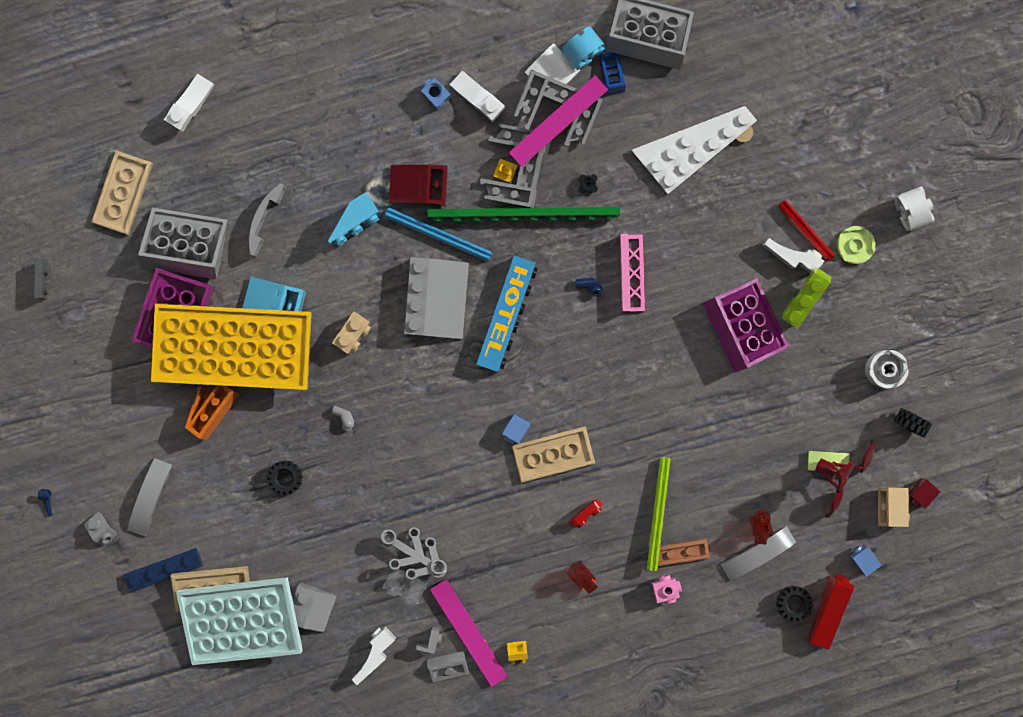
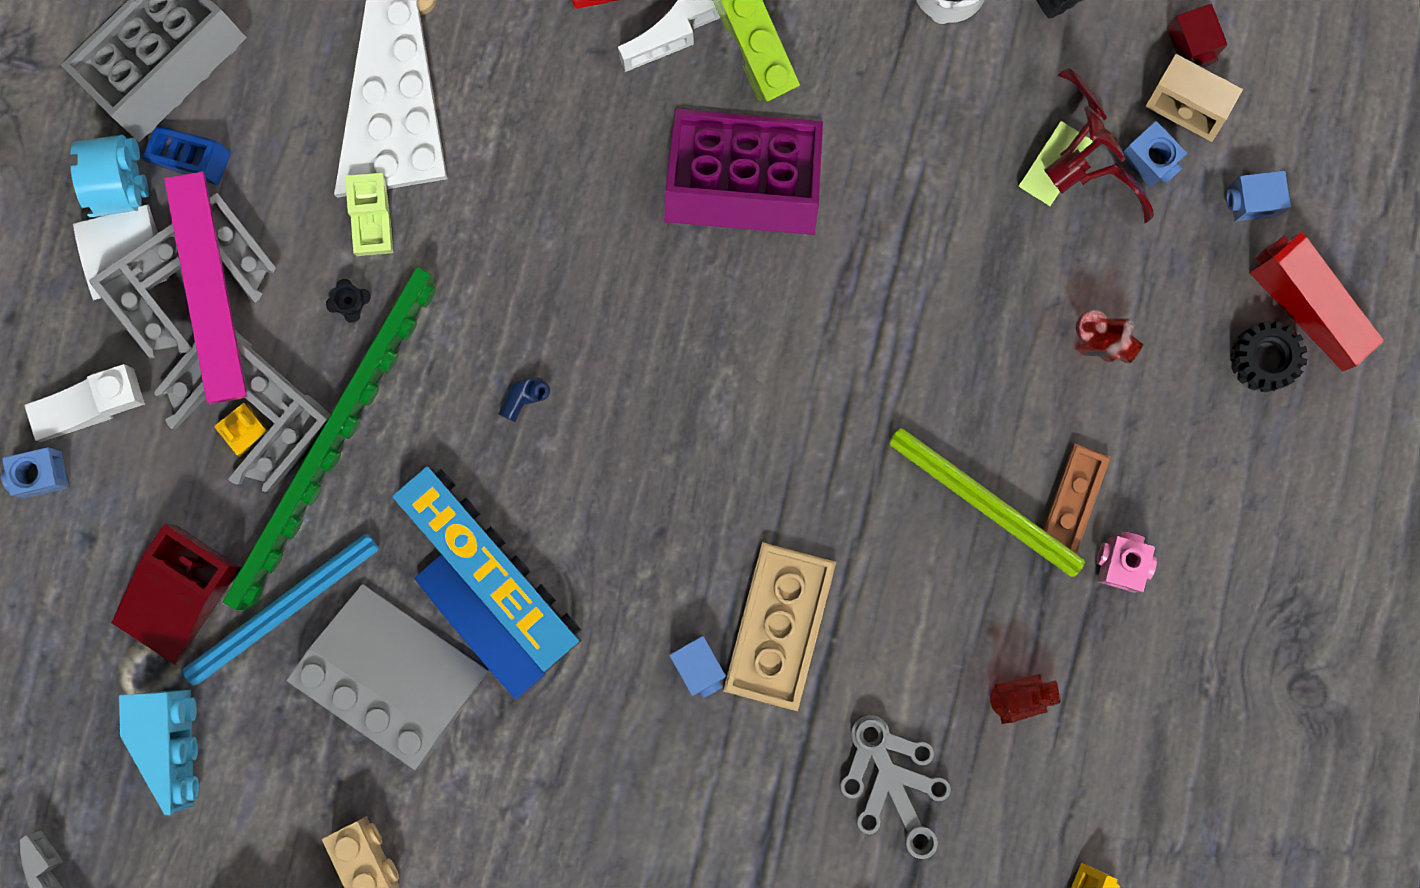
camera: 65 degrees left, 5 degrees down
(479, 324) = (479, 627): none -> blue slope
(514, 539) = (891, 779): none -> light grey plant
(580, 518) = (918, 644): red plate -> none
(625, 277) = (534, 321): bright pink fence -> none
(631, 170) = (369, 214): none -> yellowish green slope
(758, 554) = (1150, 372): light grey slope -> none
(864, 499) = (1159, 140): none -> medium blue brick

